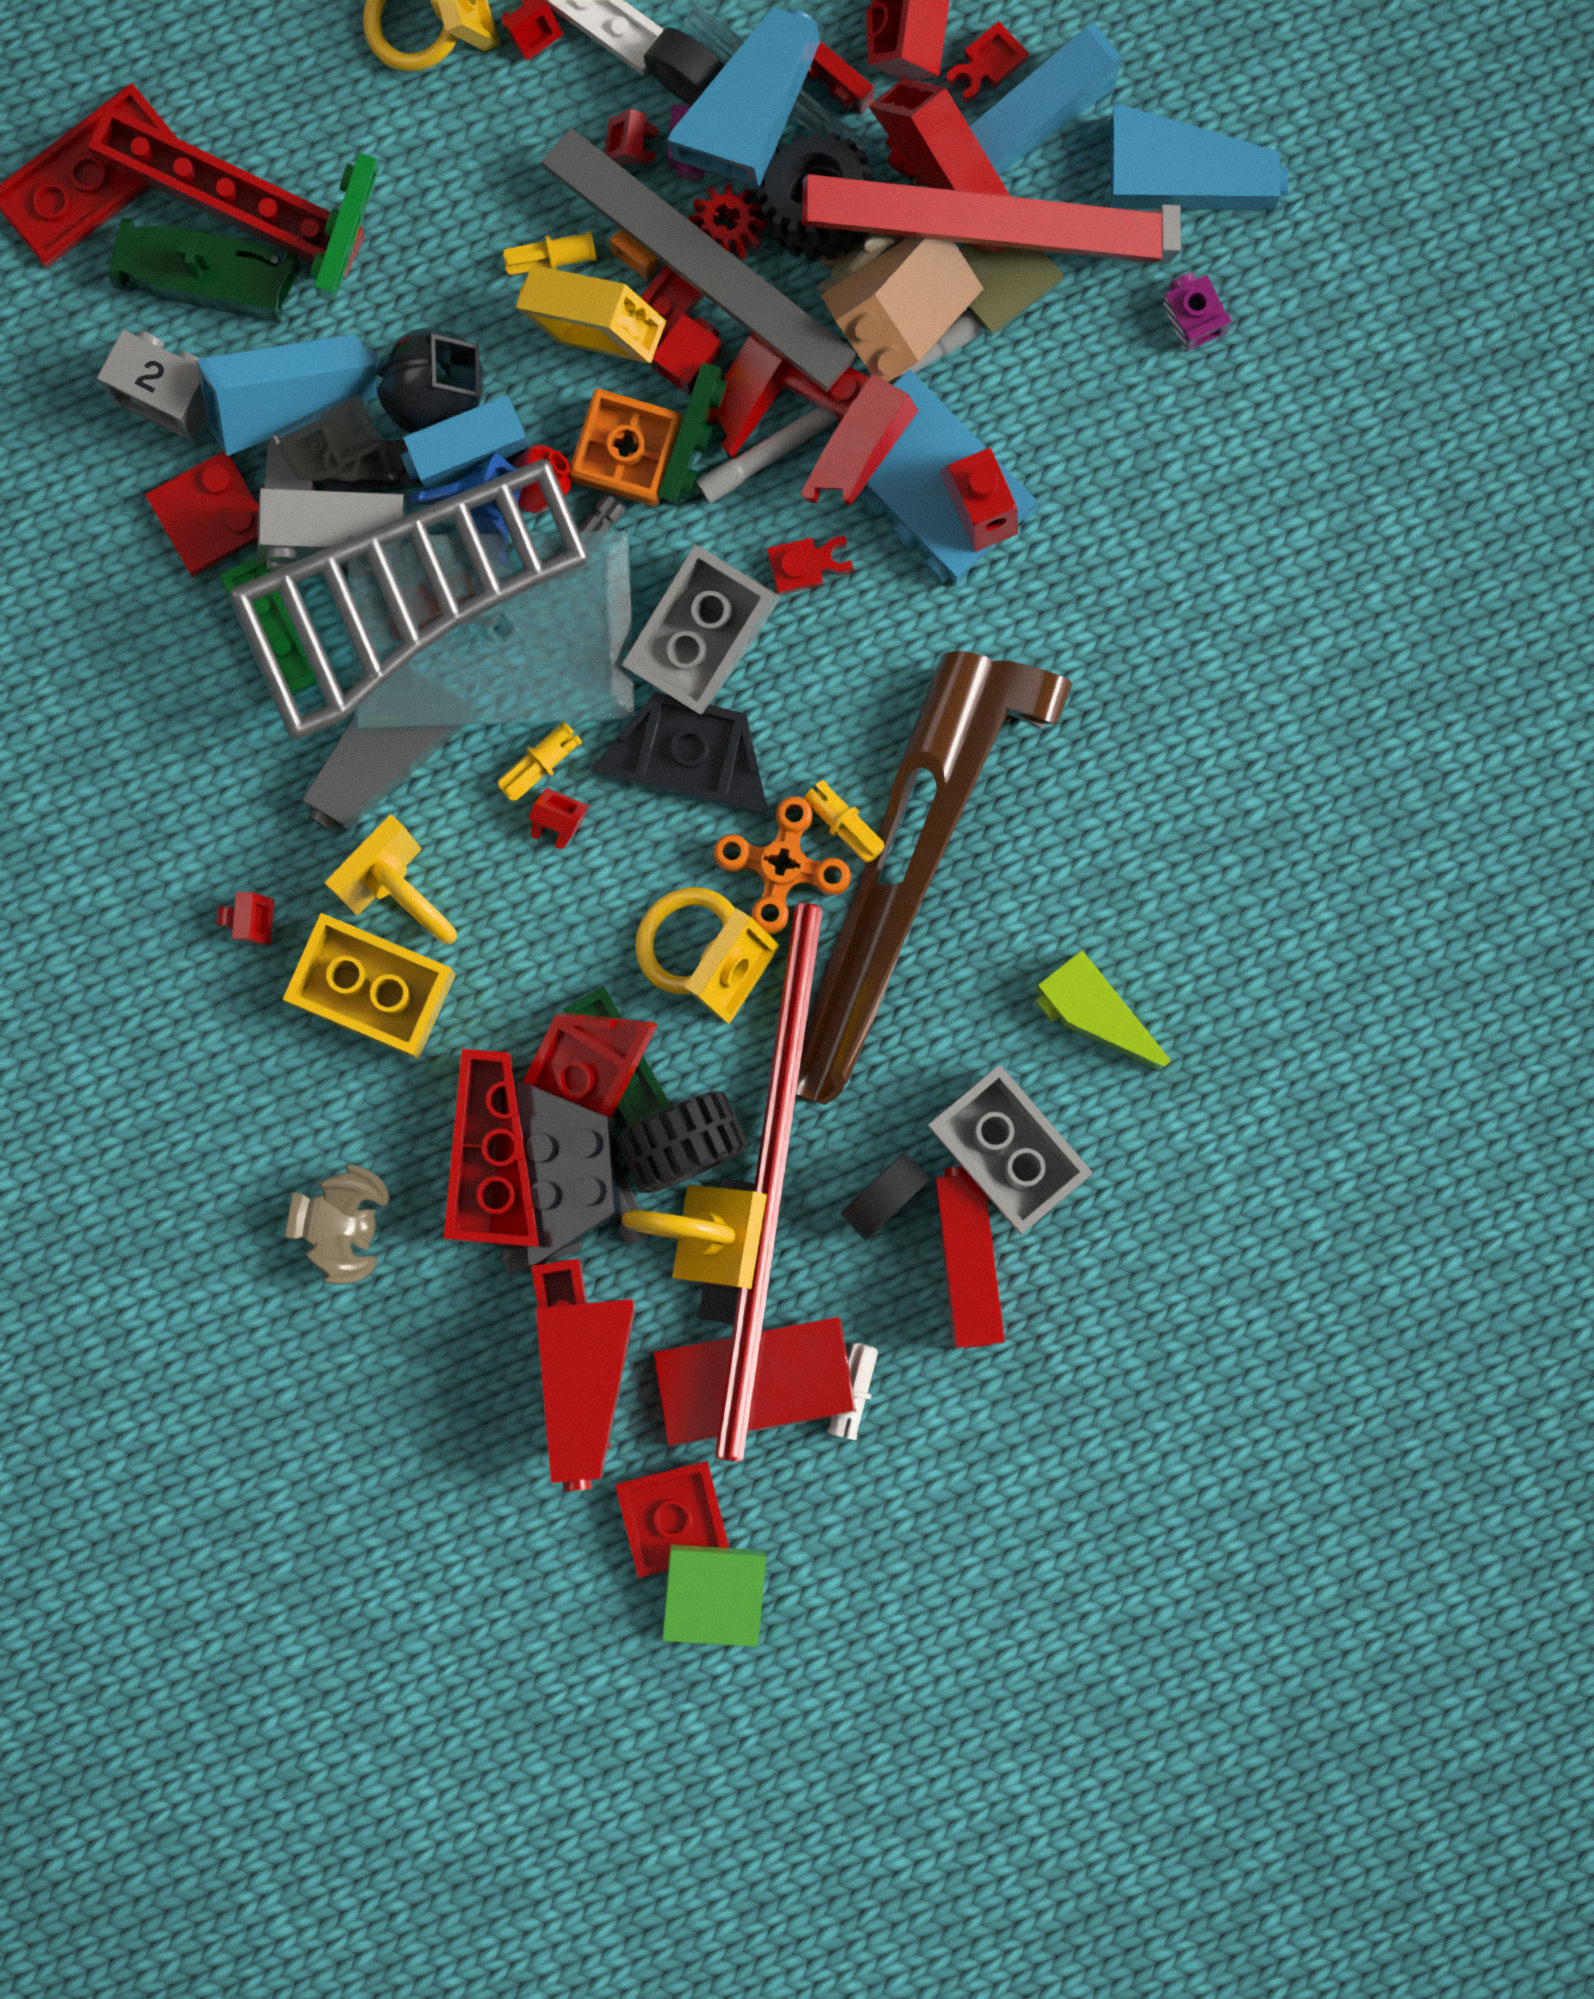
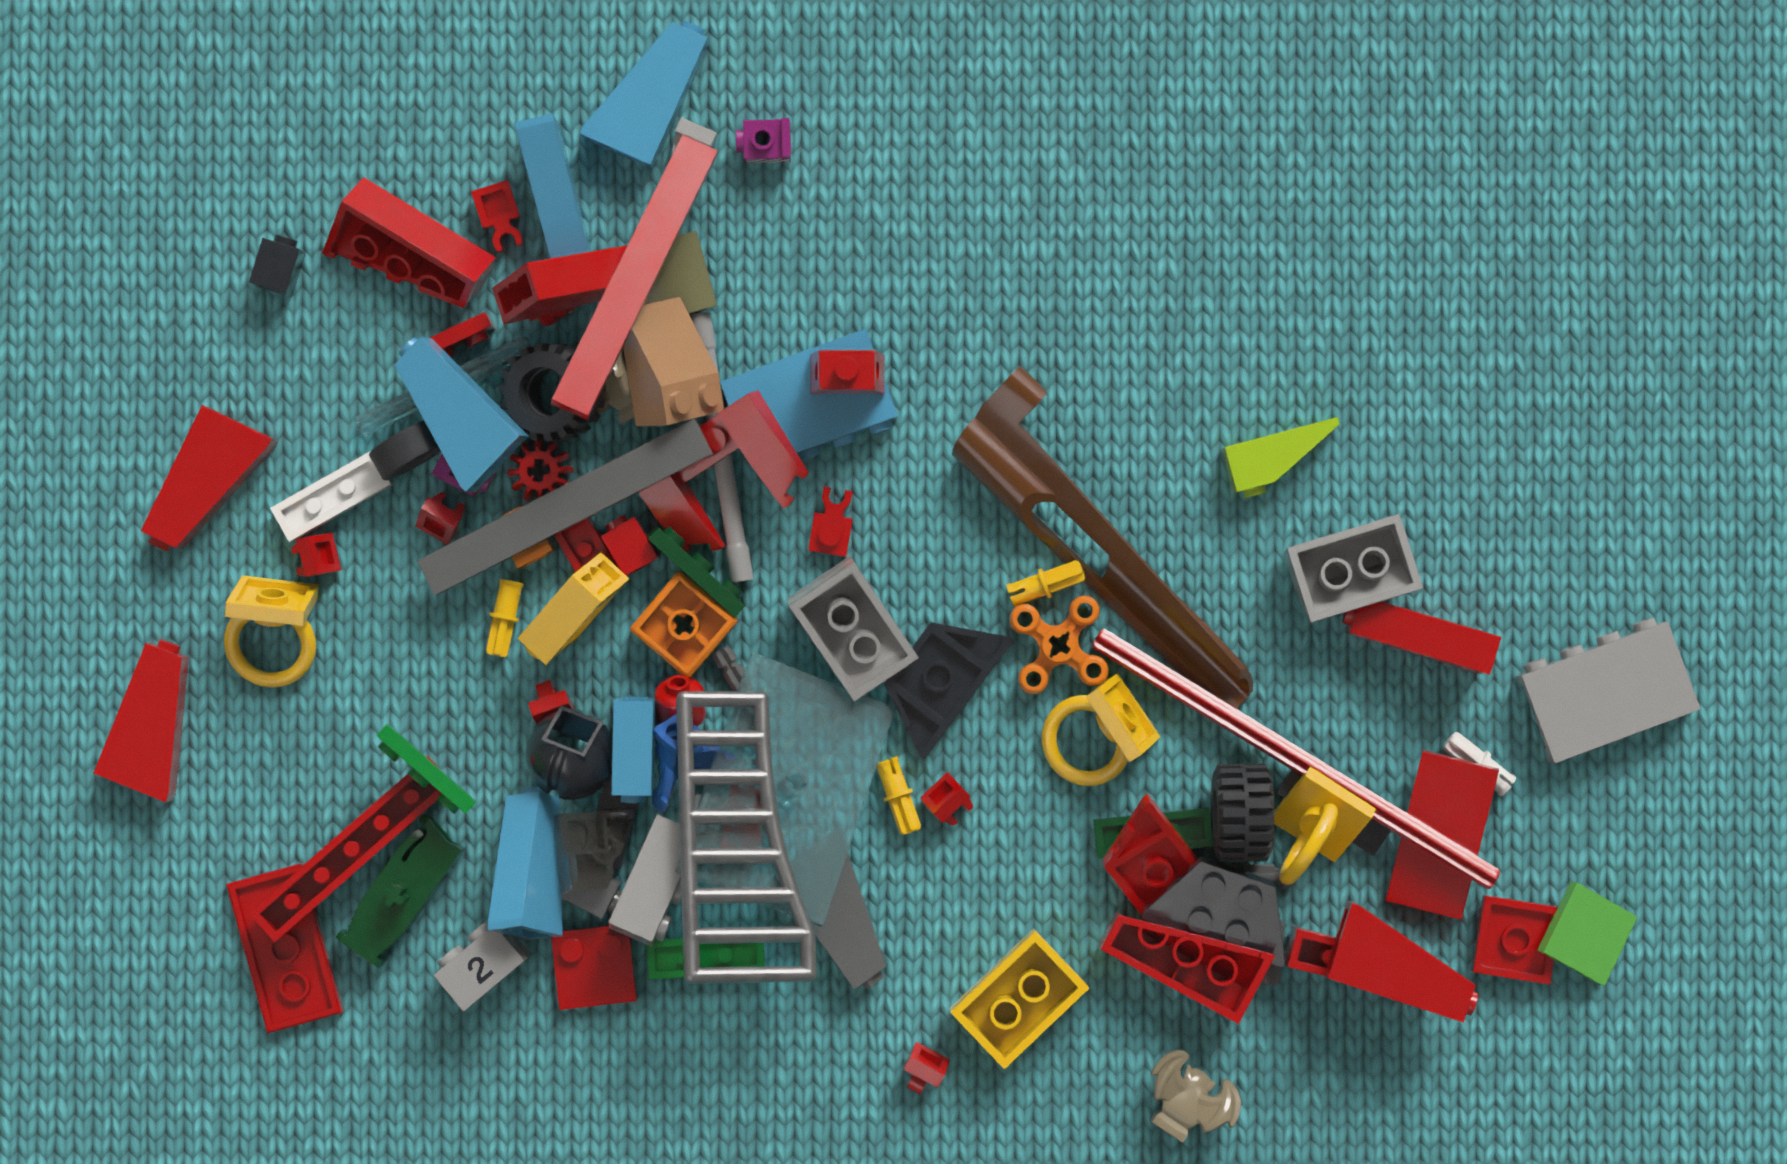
camera: 65 degrees left, 5 degrees up
(380, 870) = (937, 953): yellow tile -> none
(480, 333) = (548, 701): none -> red tile
(885, 1196) = (1346, 676): black tyre -> none
(999, 1500) = (1608, 689): none -> light grey panel

